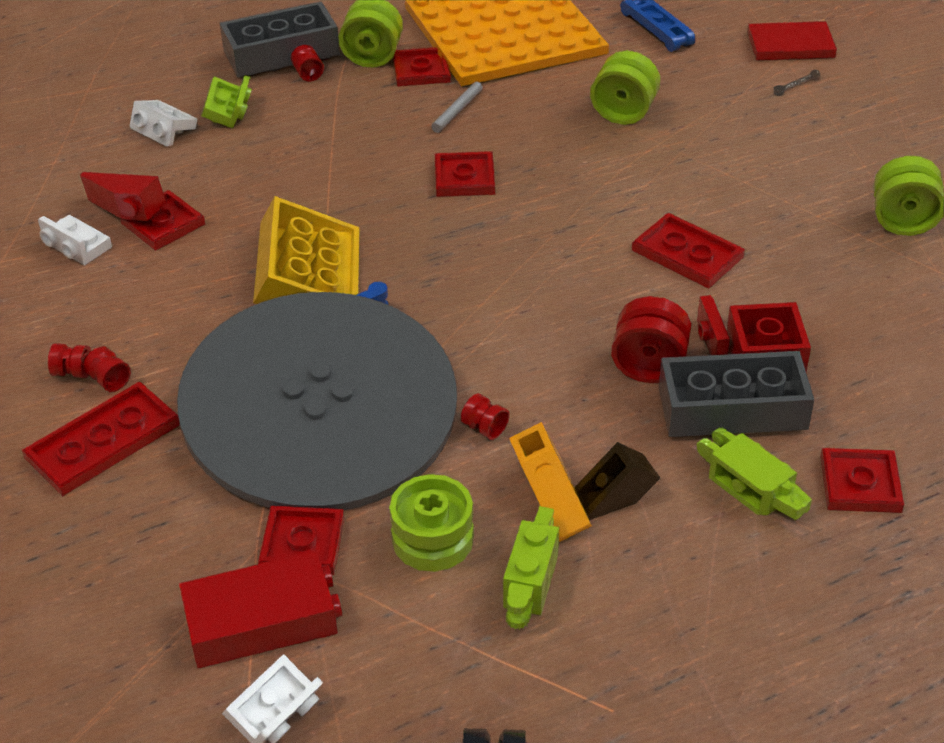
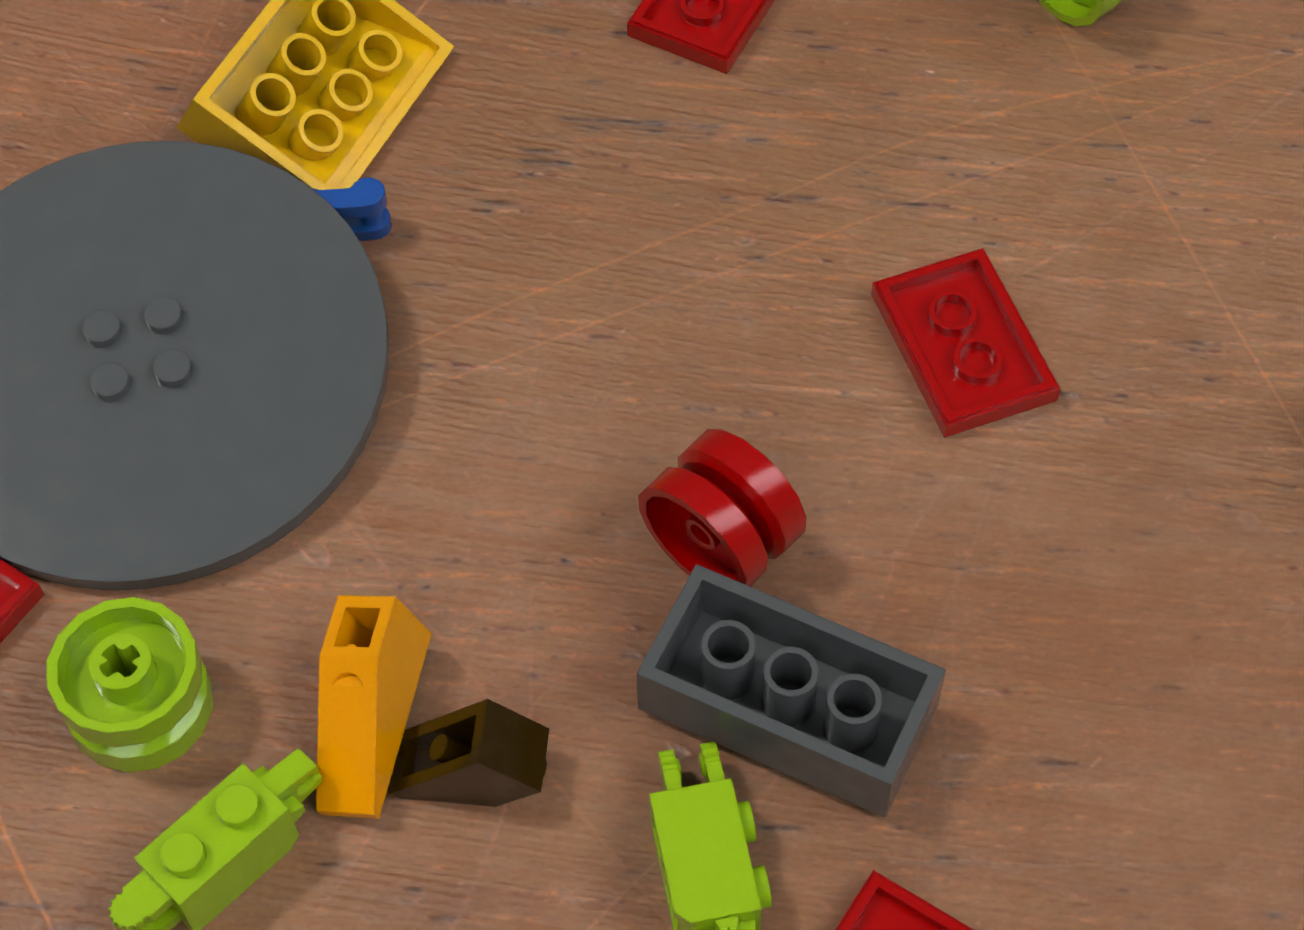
camera: 30 degrees right, 15 degrees up
(488, 418) = (367, 527): red wheel -> none
(712, 327) = (863, 533): red plate -> none
(767, 329) = (936, 601): red brick -> none

